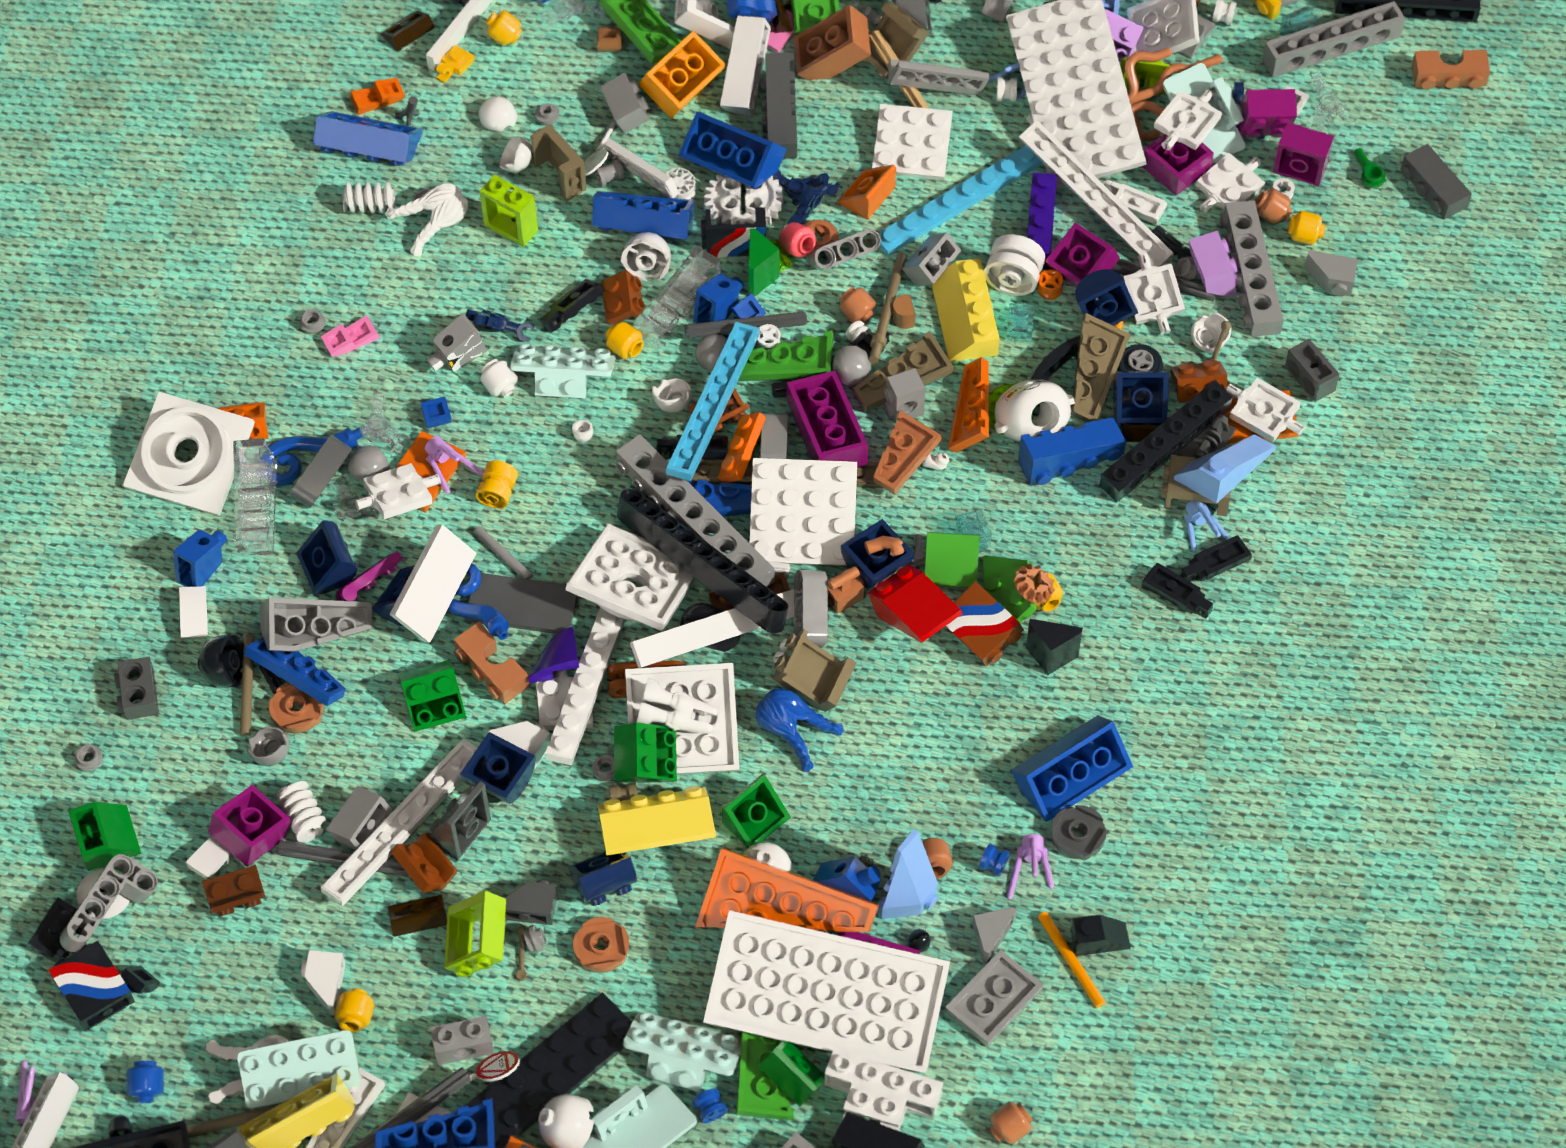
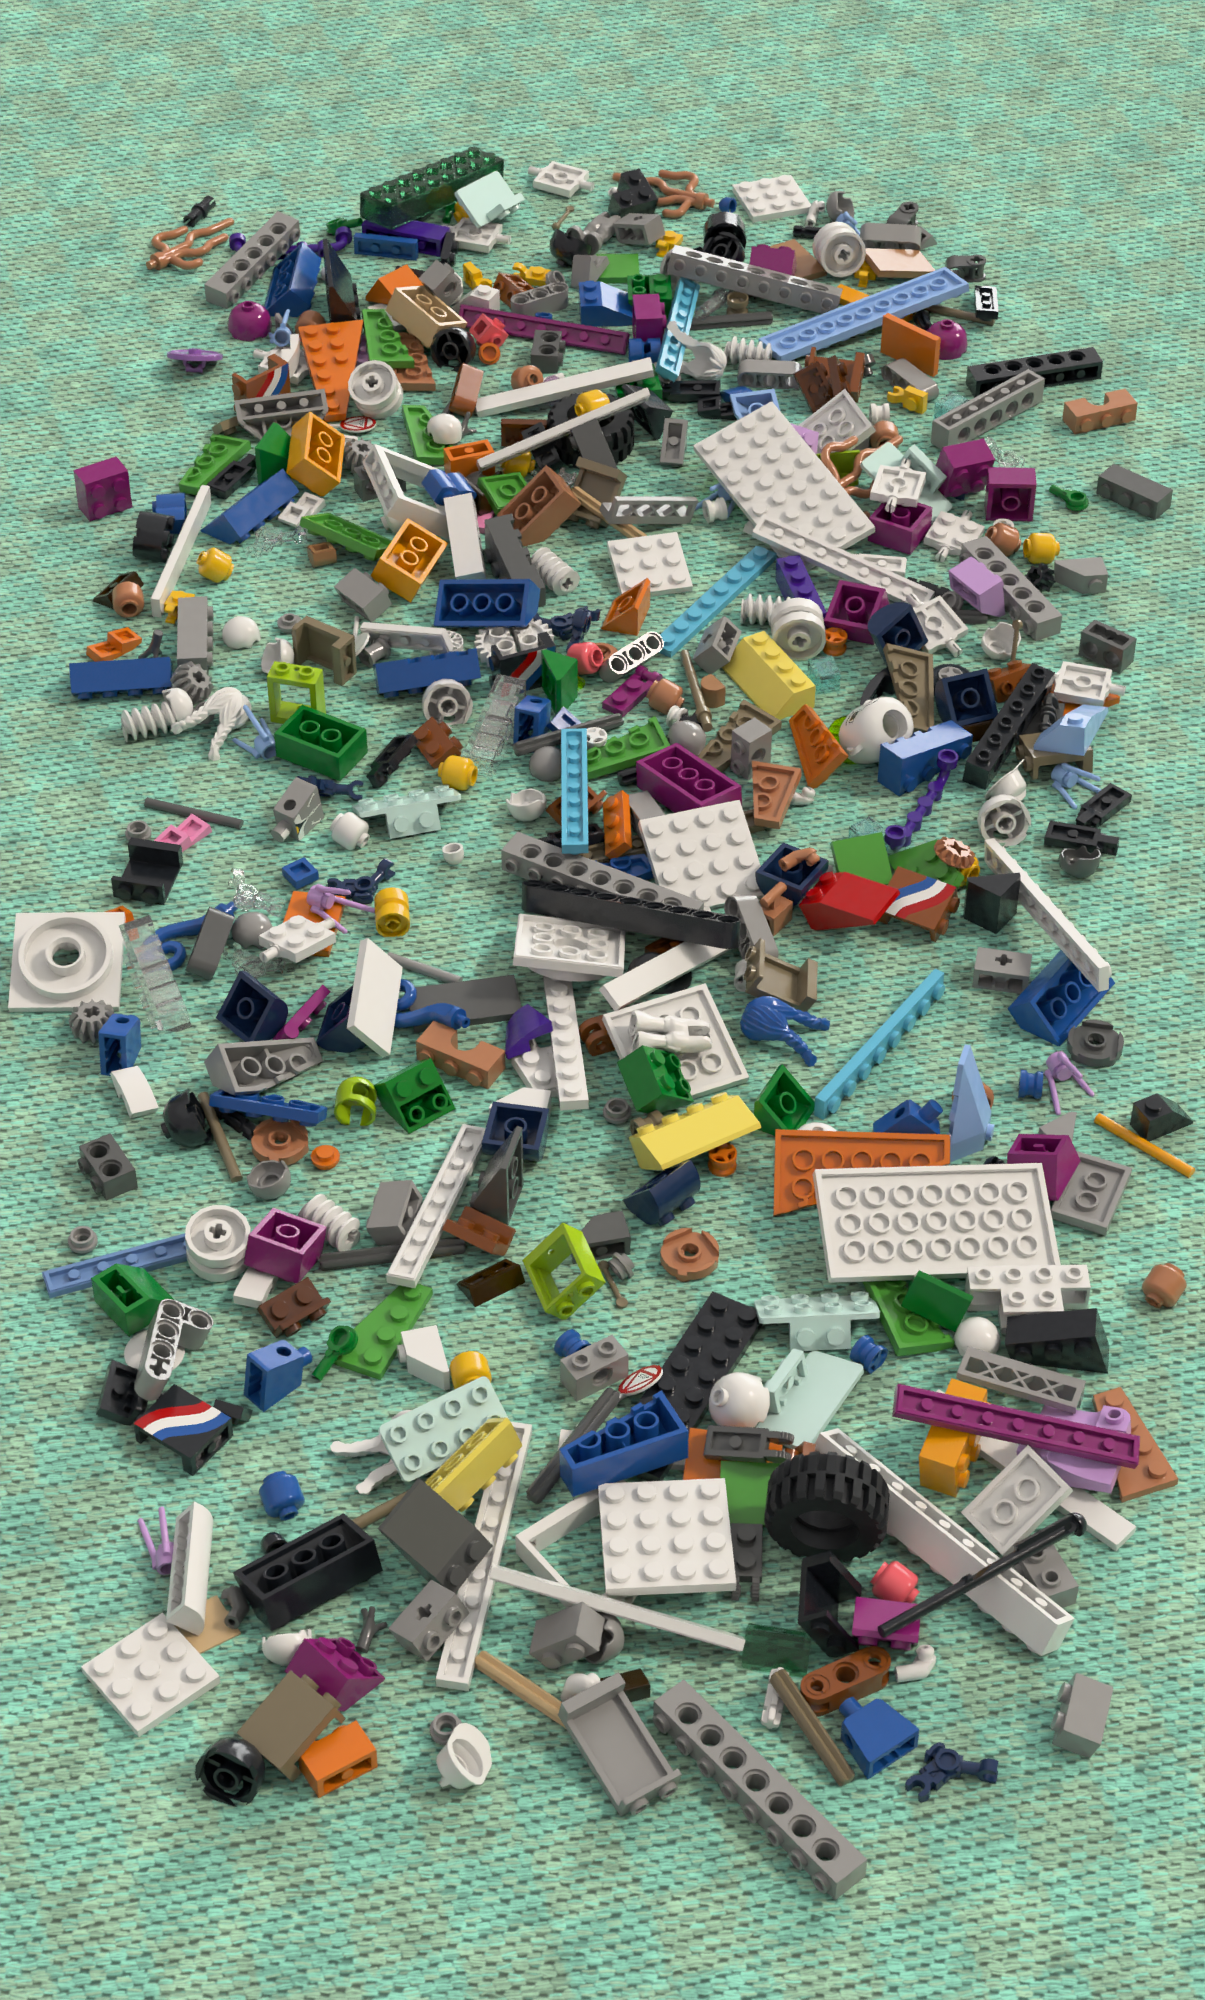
camera: 20 degrees left, 15 degrees down
(124, 792) = (147, 1256): none -> medium blue tile
(178, 802) = (217, 1243): none -> white wheel
(186, 522) = (89, 1019): none -> light grey gear
(188, 954) = (274, 1373): none -> blue torso
(256, 942) = (341, 1341): none -> green plate
(285, 948) = (382, 1330): none -> bright green wing
(302, 372) = (149, 871): none -> black panel
(329, 735) = (325, 1157): none -> orange plate
(371, 313) = (187, 811): none -> dark grey bar
(375, 675) = (355, 1092): none -> lime helmet
(402, 187) = (179, 702): none -> white hair
(408, 46) = (128, 599): none -> nougat head
(424, 165) = (193, 681): none -> light grey gear
(451, 107) = (193, 632): none -> light grey brick
(454, 1009) = (569, 1343): none -> blue wheel
(464, 255) = (264, 743): none -> light blue plant
(486, 445) = (364, 887): none -> dark blue piece
(513, 269) = (321, 742): none -> green brick
(674, 861) = (727, 1154): none -> orange wheel
(815, 1121) = (978, 1334): none -> white hair
(816, 123) = (555, 572): none -> white piece
(830, 287) = (631, 691): none -> magenta plate
(869, 774) = (876, 1047): none -> medium azure plate
(966, 955) = (1055, 1154): none -> magenta slope
(993, 228) = (758, 609): none -> white piece
(995, 541) = (900, 836): none -> dark purple bar
(1015, 722) = (1001, 970): none -> light grey brick
(1091, 687) = (1050, 918): none -> white plate
(1111, 547) = (1006, 816): none -> white cylinder
(1135, 515) = (1009, 784): none -> white piece
(1158, 611) = (1079, 862): none -> dark grey hair
(1214, 41) = (884, 432): none -> nougat head
(1287, 265) = (1041, 577): none -> black gear

